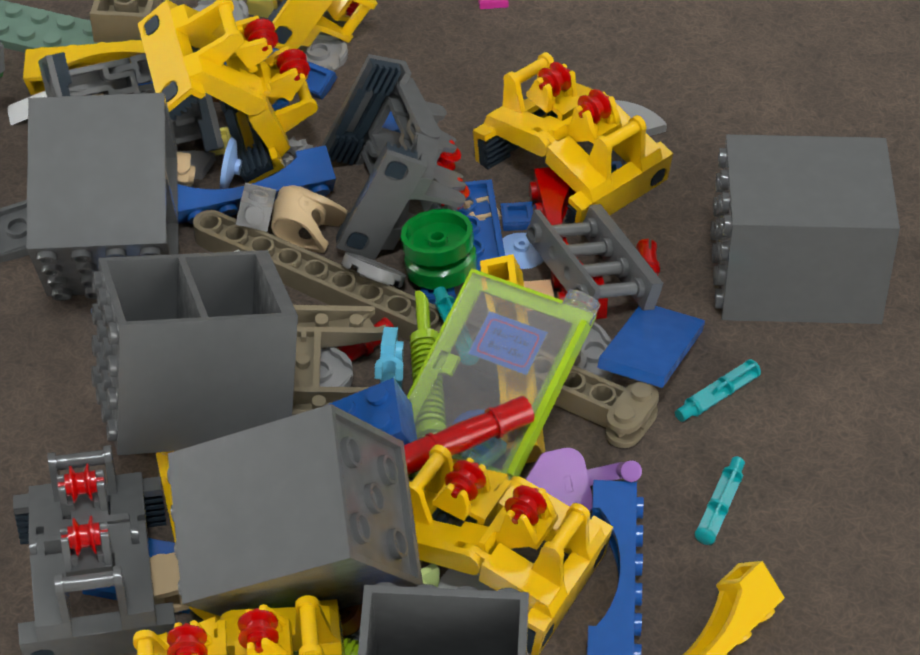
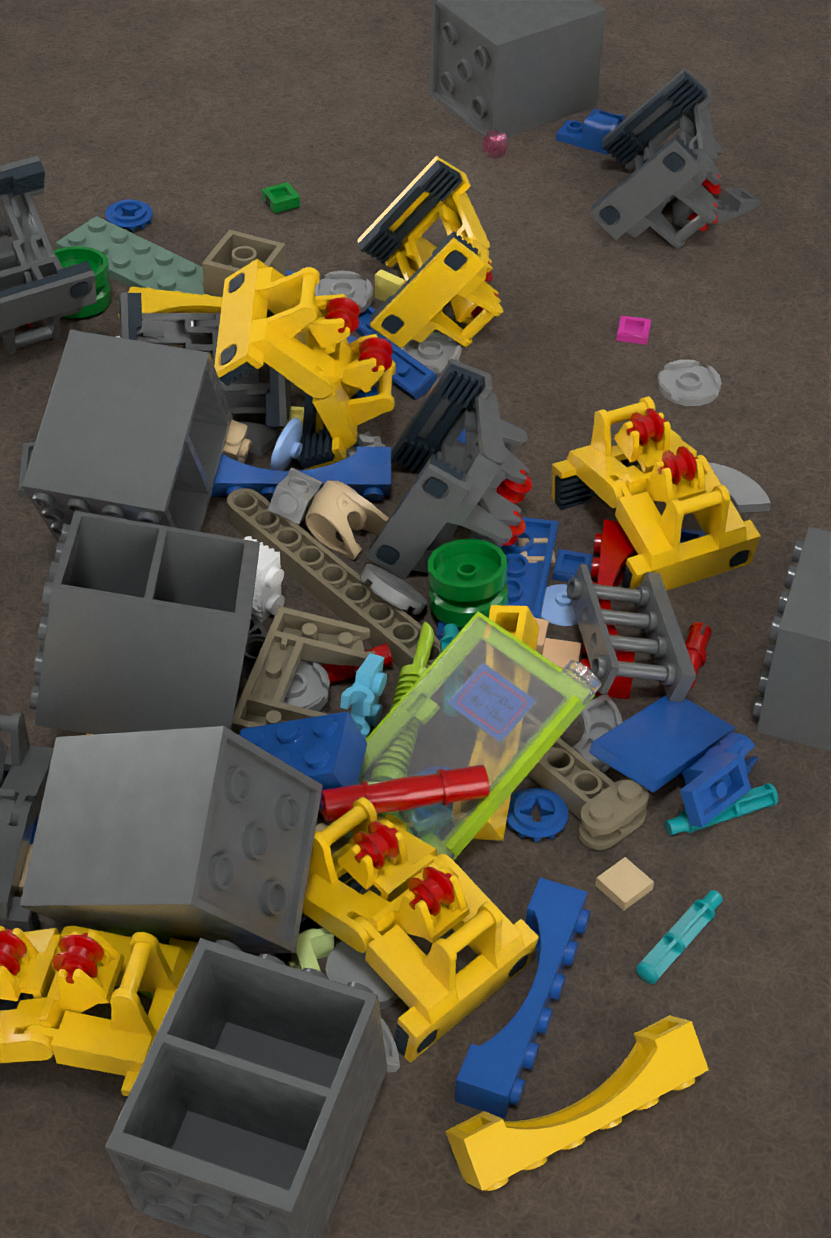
camera: 15 degrees right, 0 degrees up
(548, 36) = (689, 383): none -> light grey tile
(567, 479) = (507, 871): medium lavender piece -> none
(575, 422) = (551, 808): none -> blue gear
(661, 469) = (624, 883): none -> tan tile
(708, 364) = (717, 779): none -> blue plate

